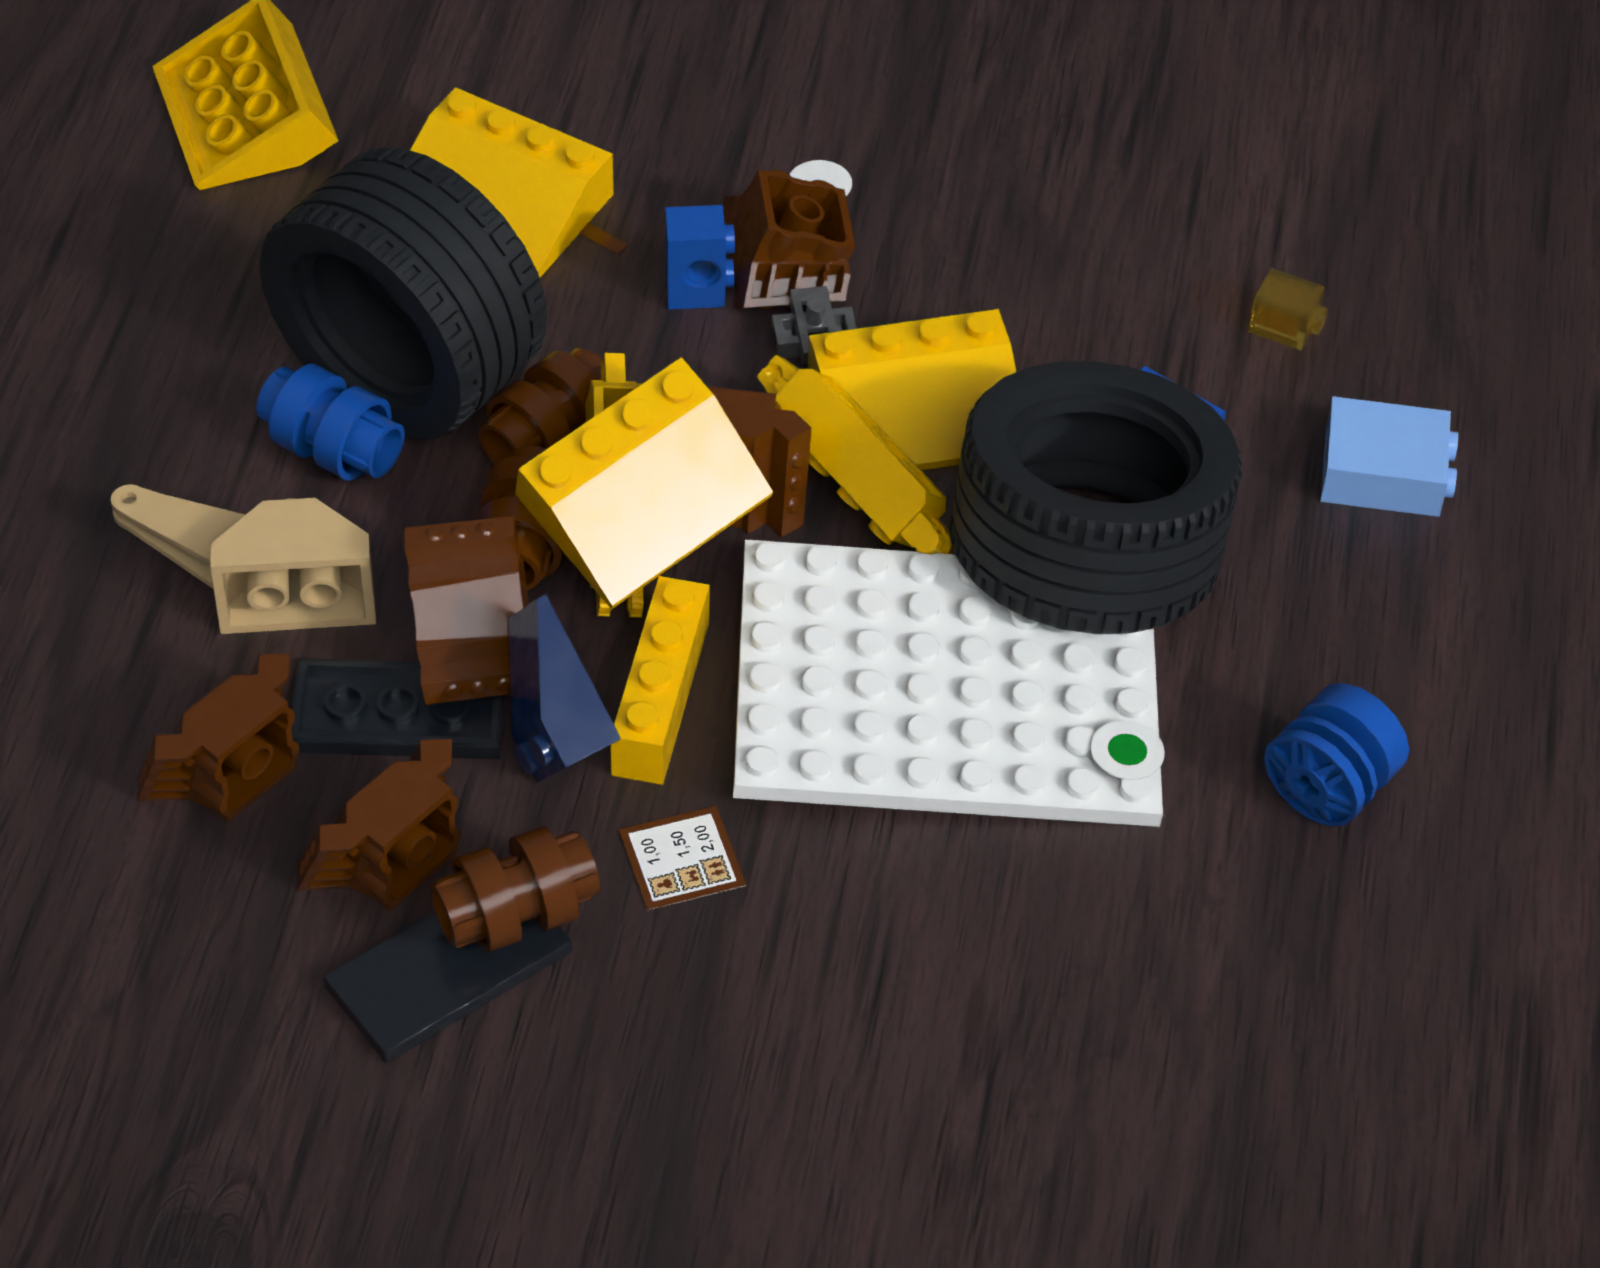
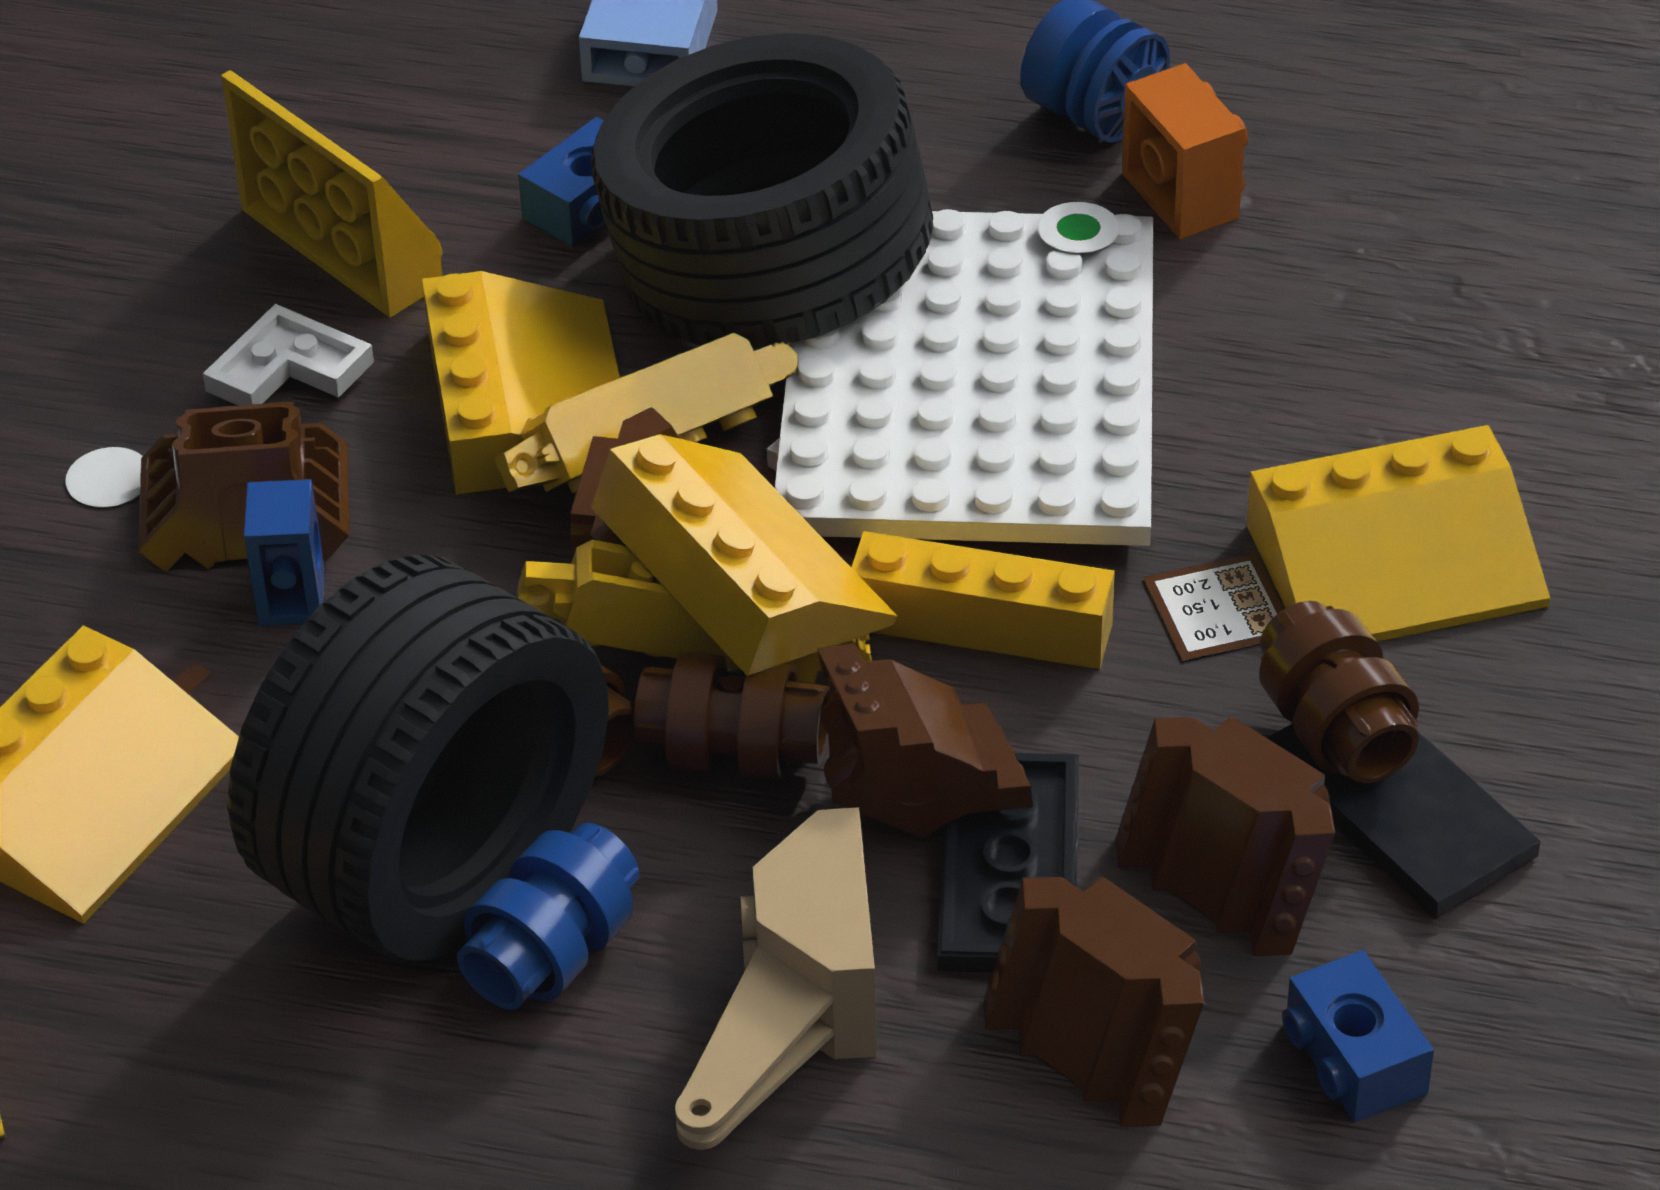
camera: 85 degrees left, 5 degrees down
(214, 913) = (1357, 1036): none -> blue brick
(552, 697) = (1058, 652): dark blue slope -> none
(737, 974) = (1400, 534): none -> yellow slope
(817, 318) = (396, 461): flat silver piece -> none
(946, 256) = (284, 347): none -> white plate
(1094, 246) = (327, 202): none -> yellow slope
(1224, 817) = (1183, 150): none -> orange brick
(1288, 309) = (413, 79): clear yellow brick -> none

